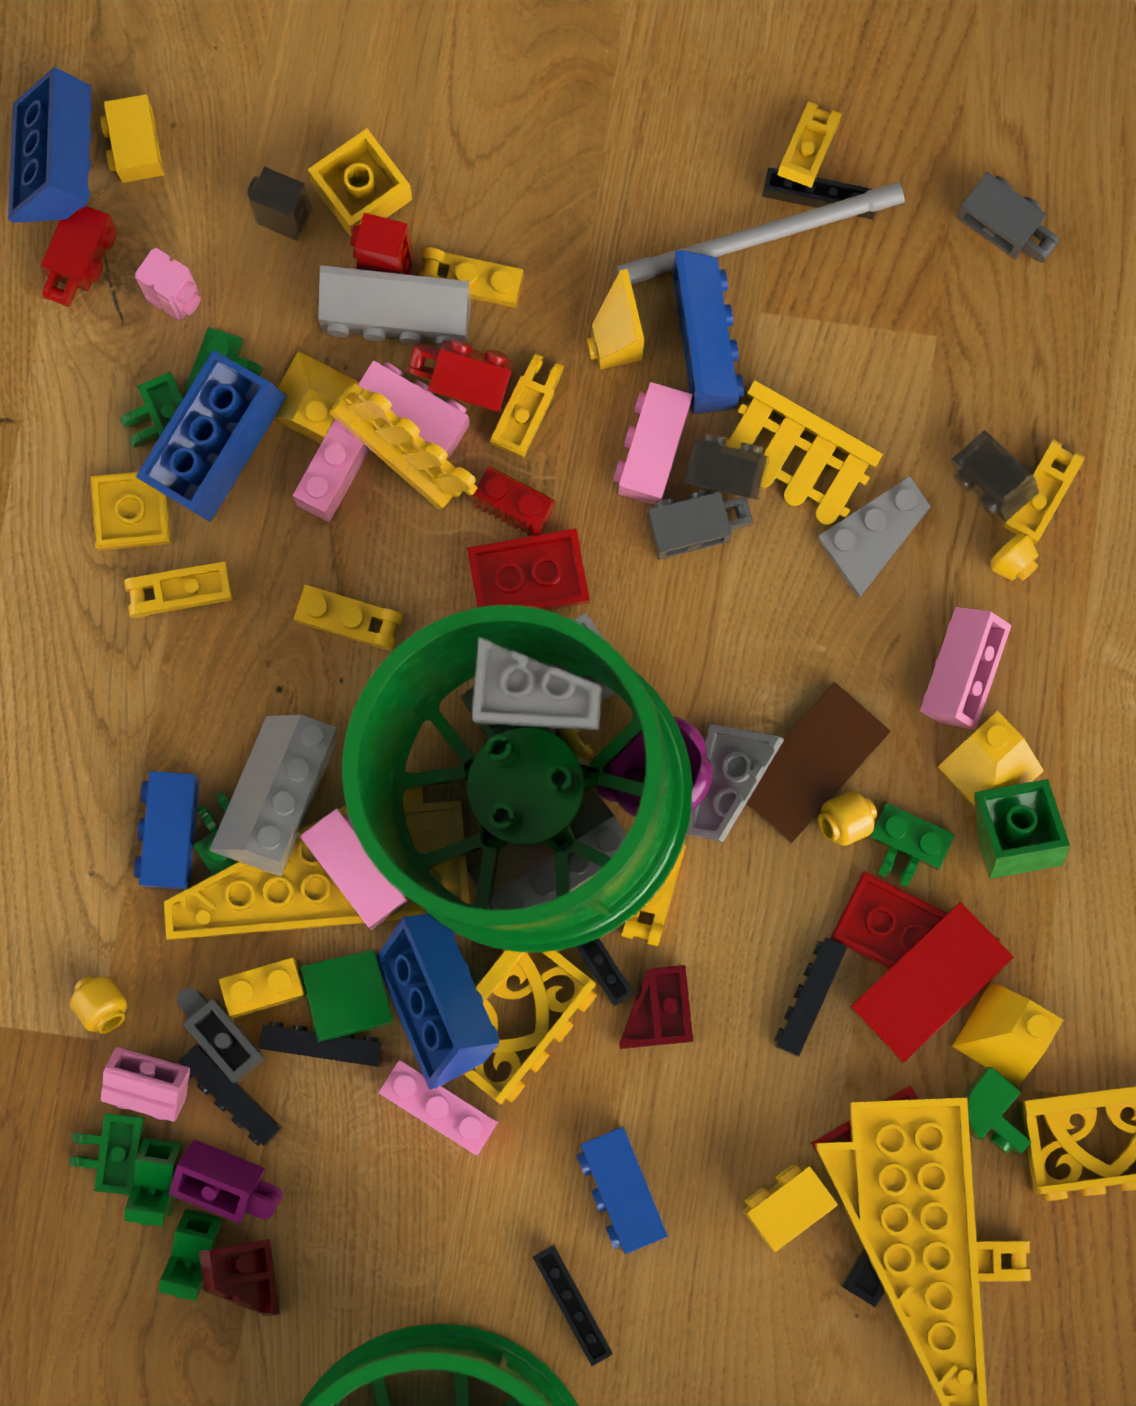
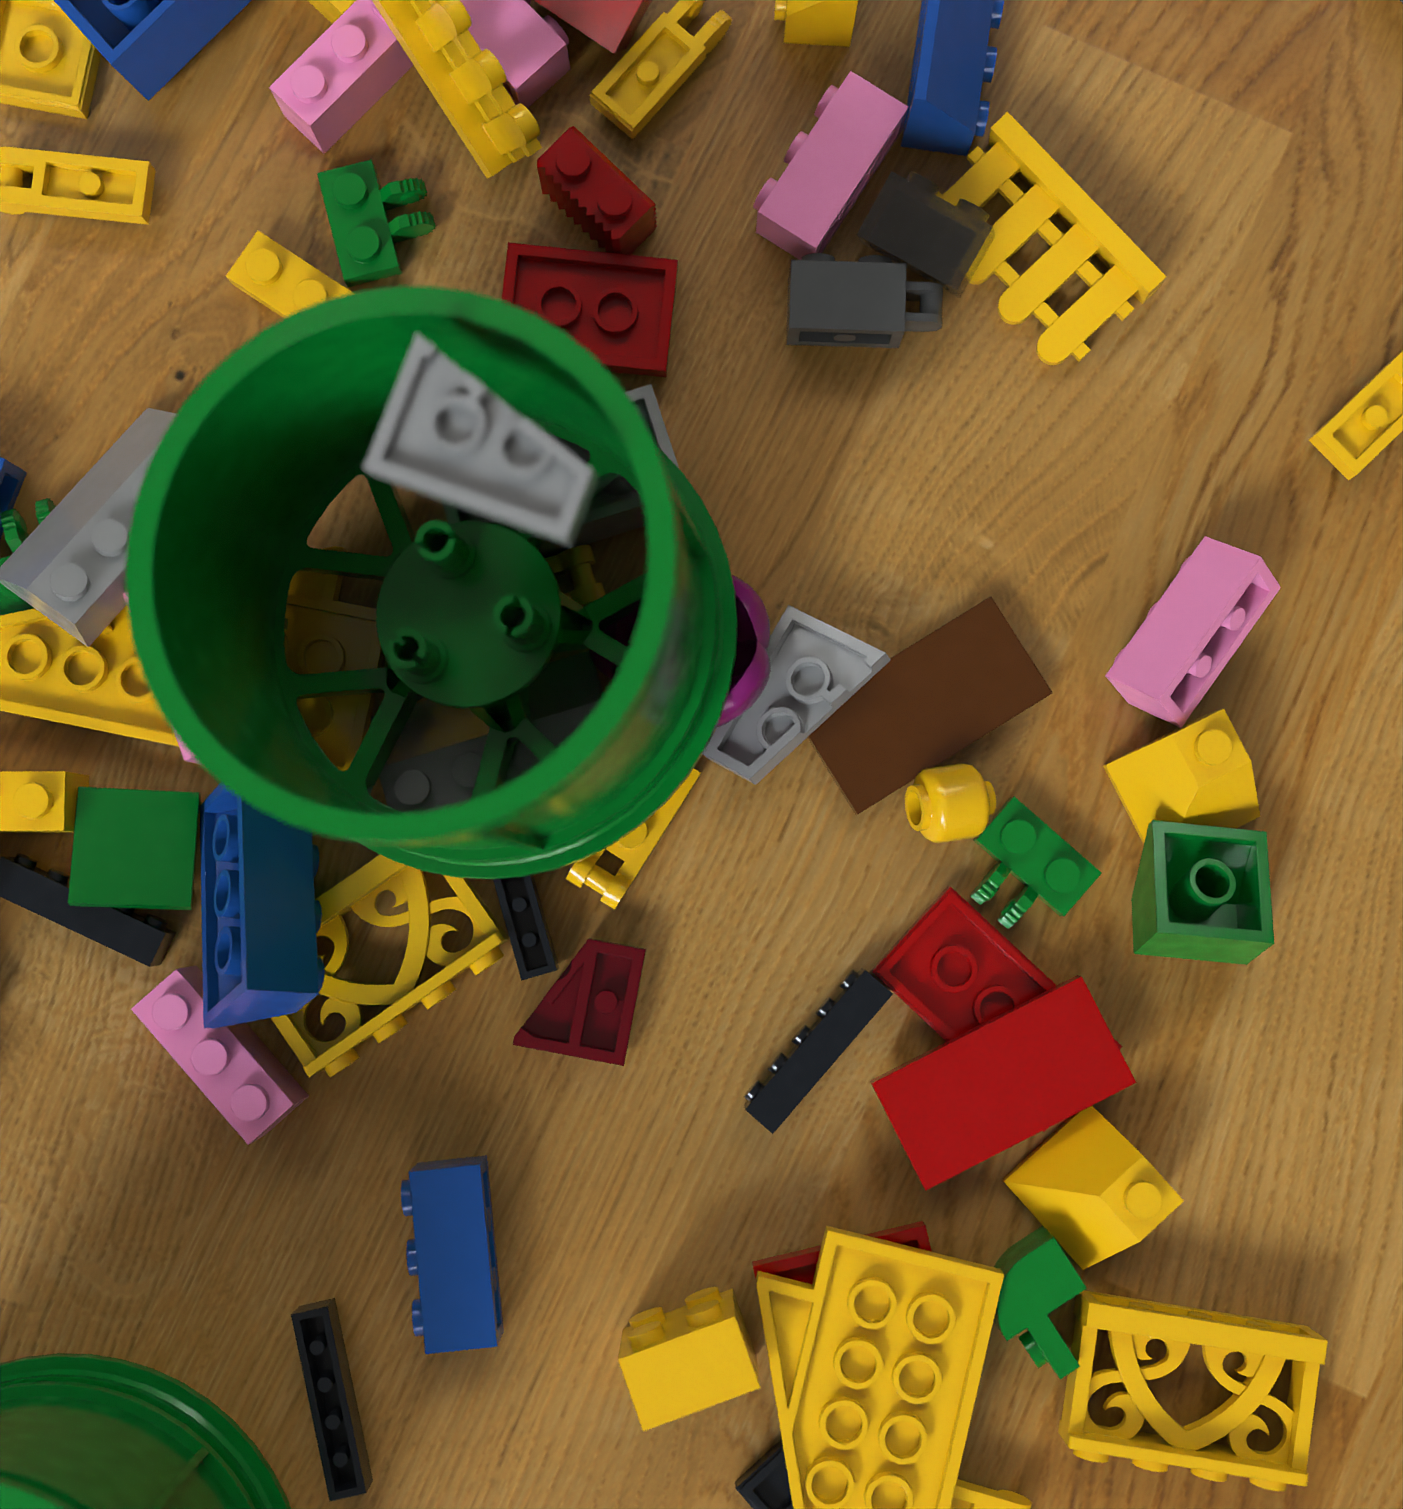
camera: 15 degrees right, 5 degrees up
(367, 560) = (361, 223): none -> green hinge
(873, 534) = (1113, 395): light grey wing -> none
(994, 476) = (1322, 358): clear smoke brick -> none
(1016, 558) = (1315, 490): yellow cone -> none

